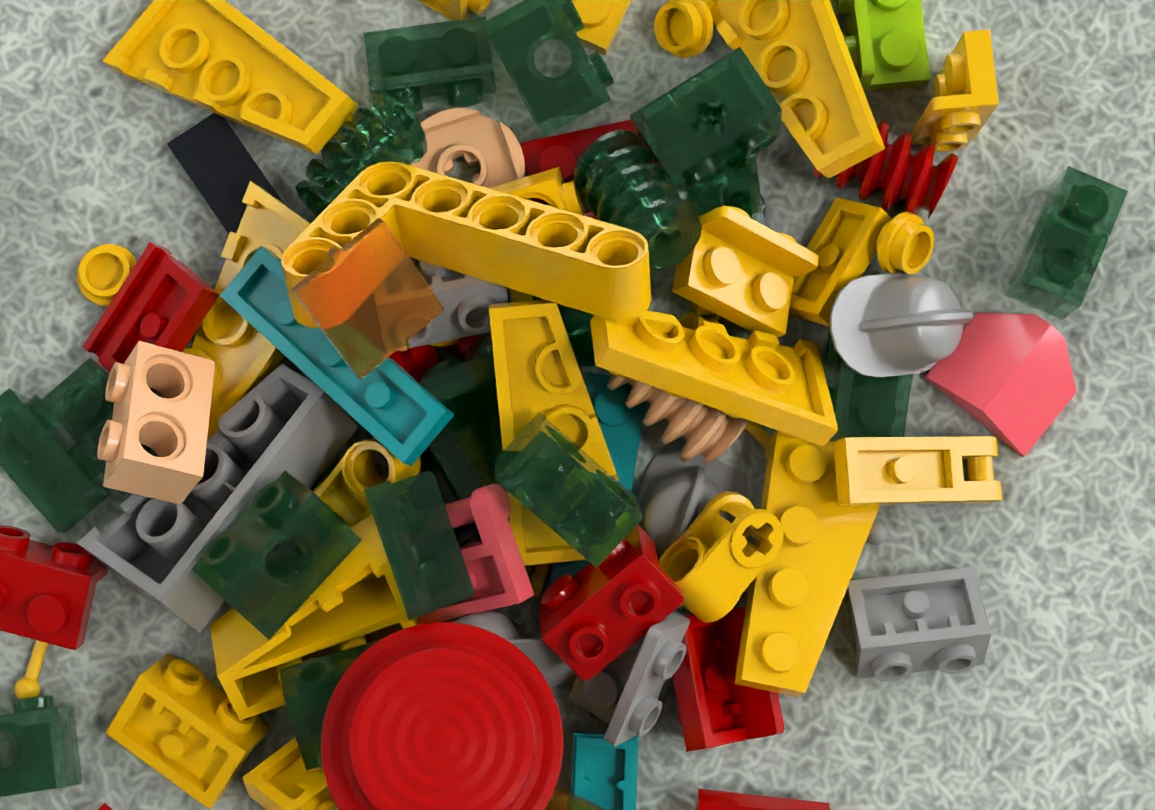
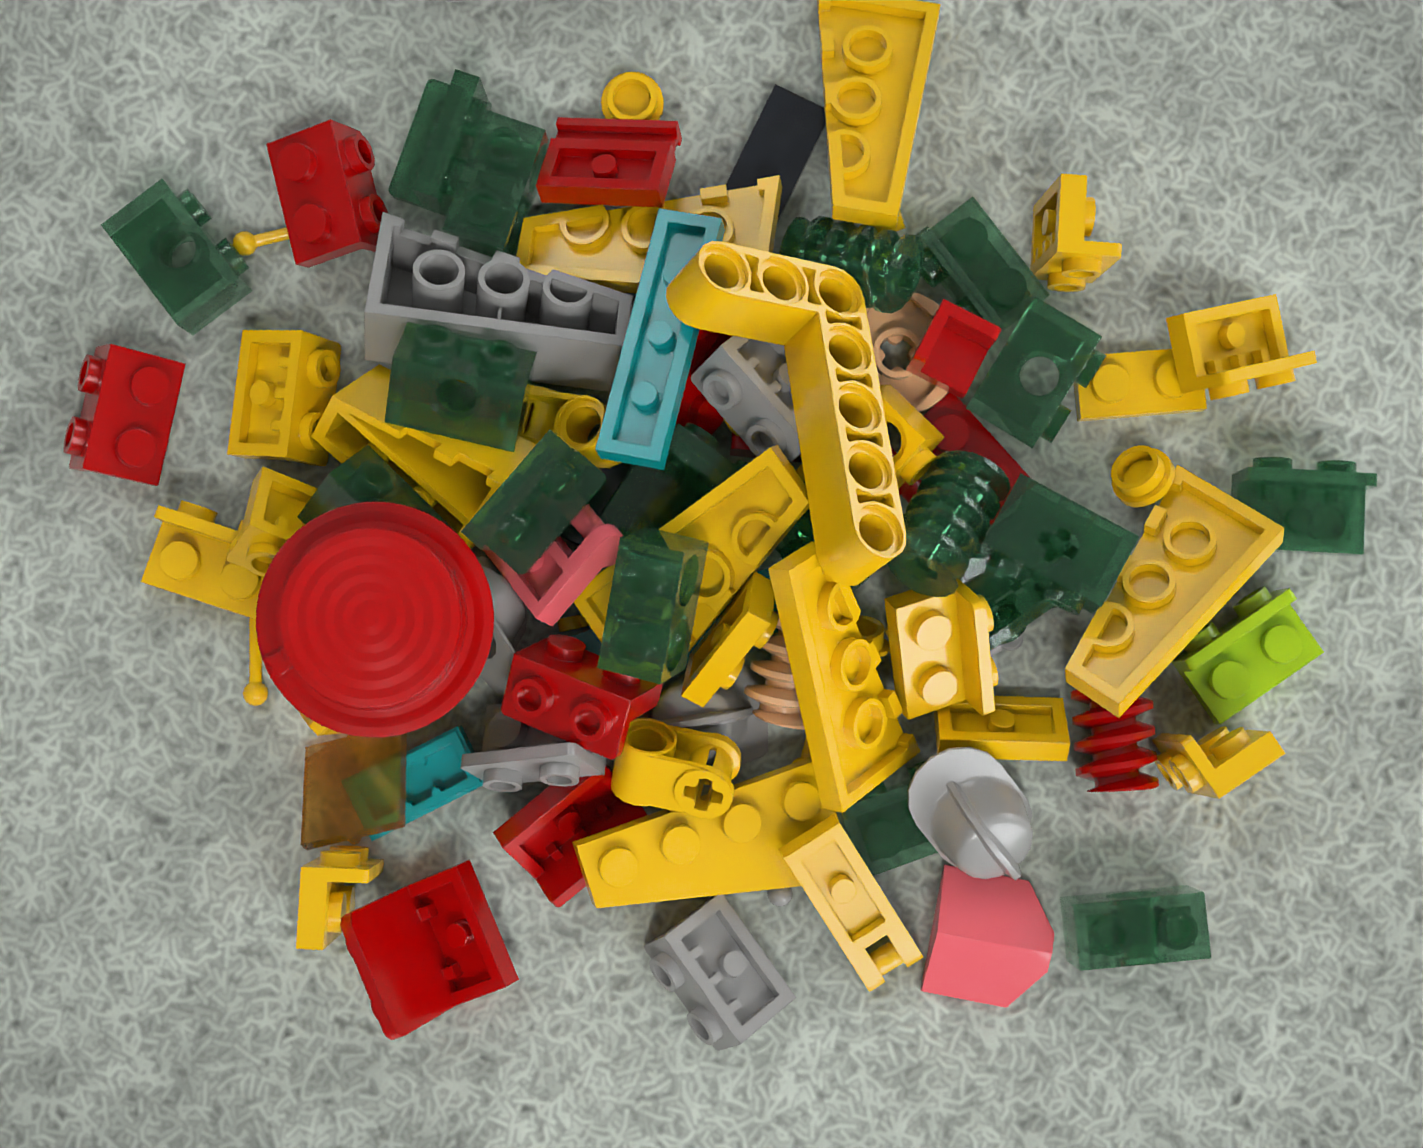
camera: 65 degrees right, 5 degrees up
(169, 425) = (519, 233): light nougat brick -> none
(368, 298) = (717, 337): clear orange piece -> none
(486, 117) = (953, 348): none -> red panel
(629, 432) = (722, 650): none -> yellow plate
(904, 244) = (1049, 782): yellow plate -> none

